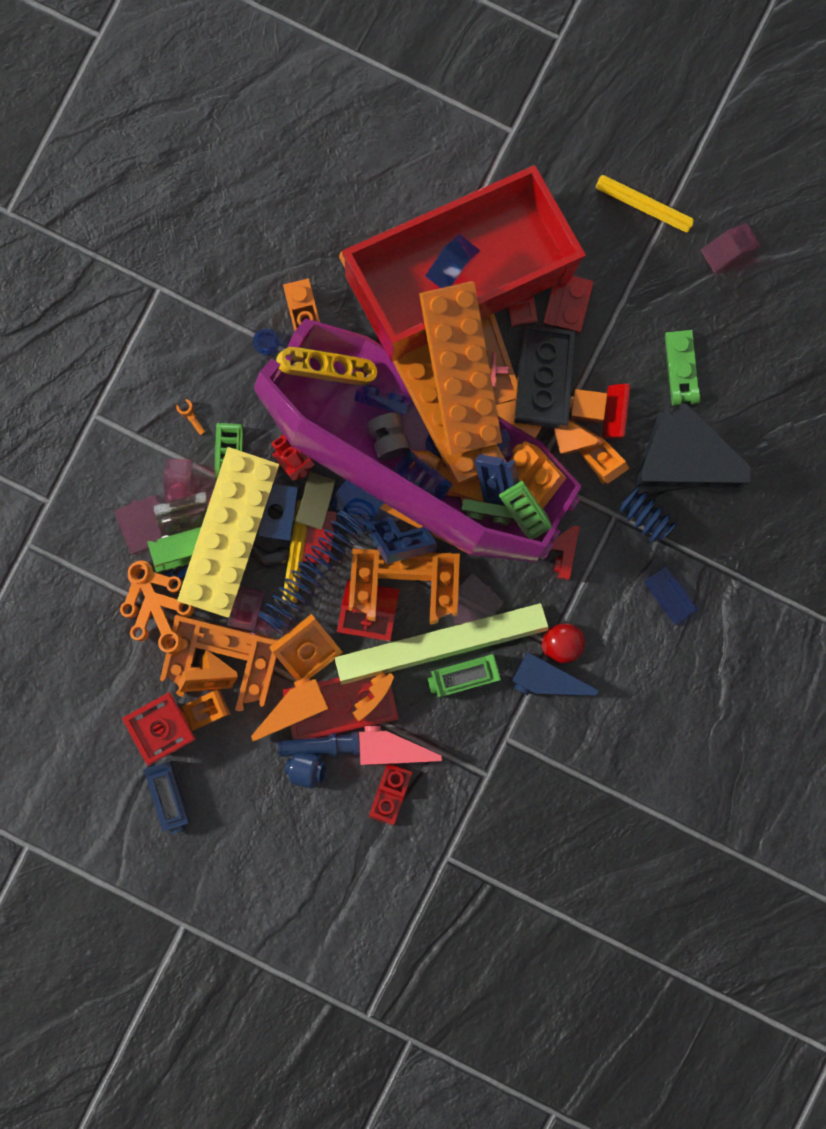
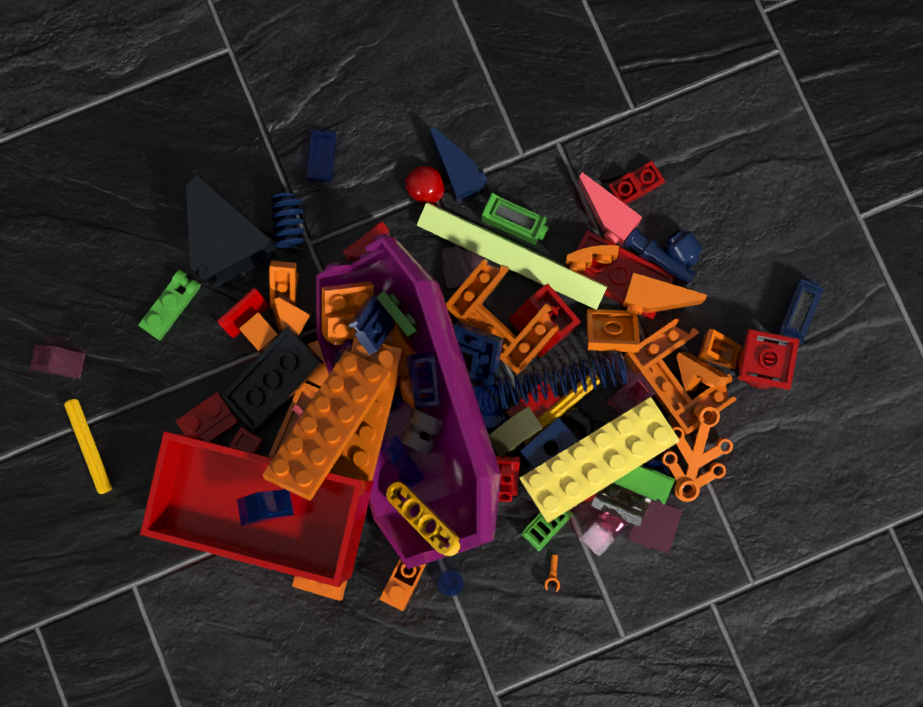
camera: 135 degrees left, 5 degrees down
(534, 524) = (372, 285): bright green slope -> none

